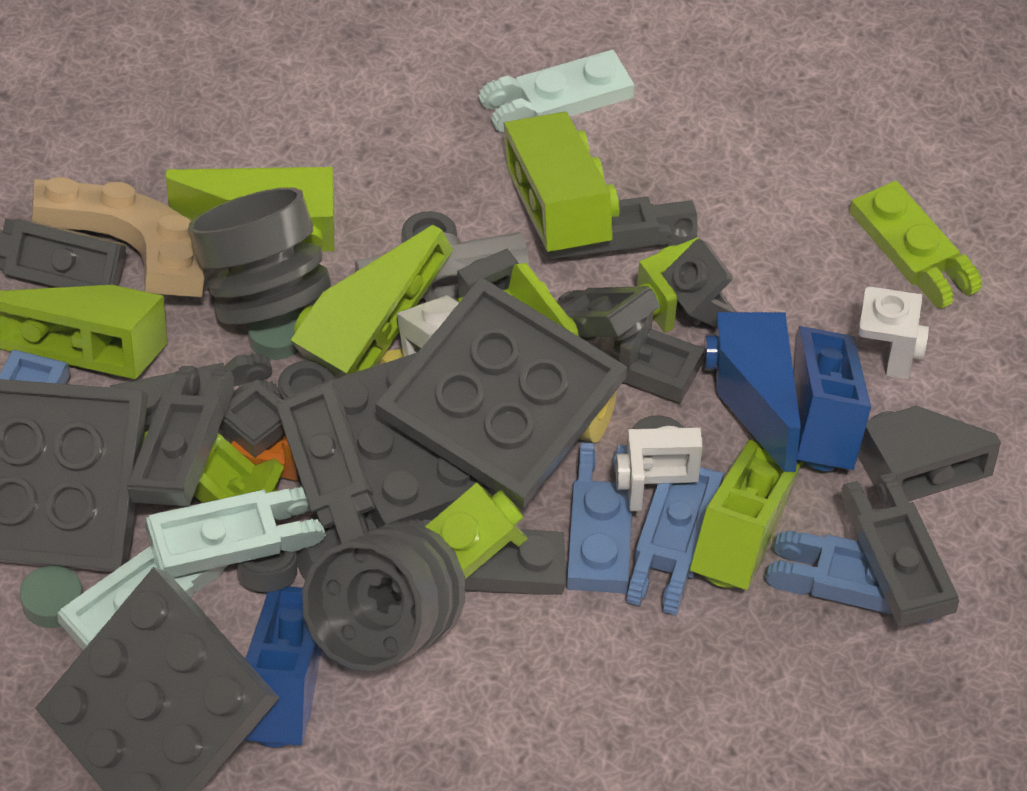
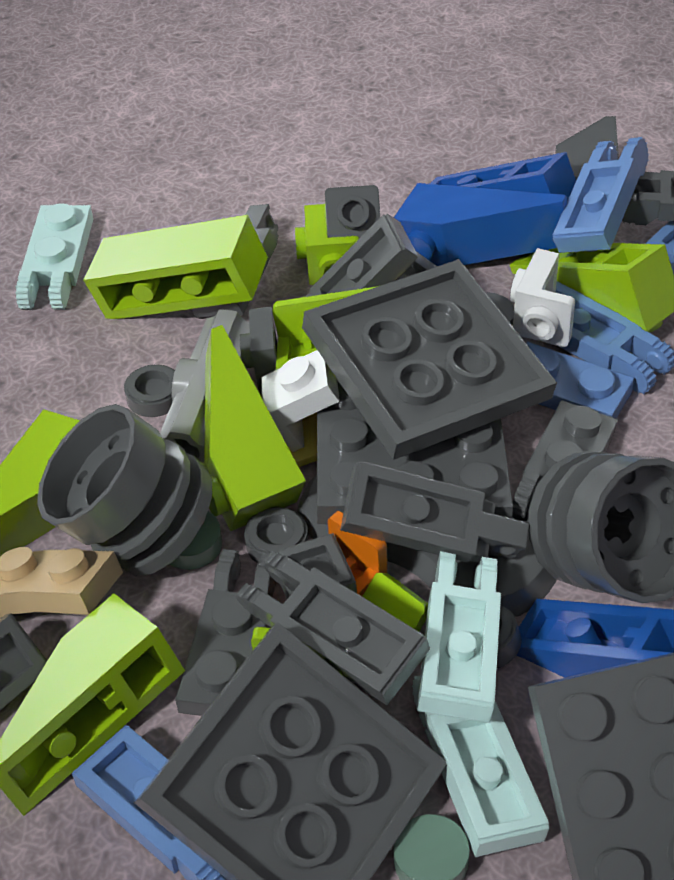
camera: 60 degrees left, 5 degrees down
(478, 526) = (564, 426): lime bracket -> none
(832, 459) = (601, 197): none -> medium blue hinge
(895, 318) = (465, 137): white bracket -> none
(914, 243) = (370, 116): lime hinge -> none

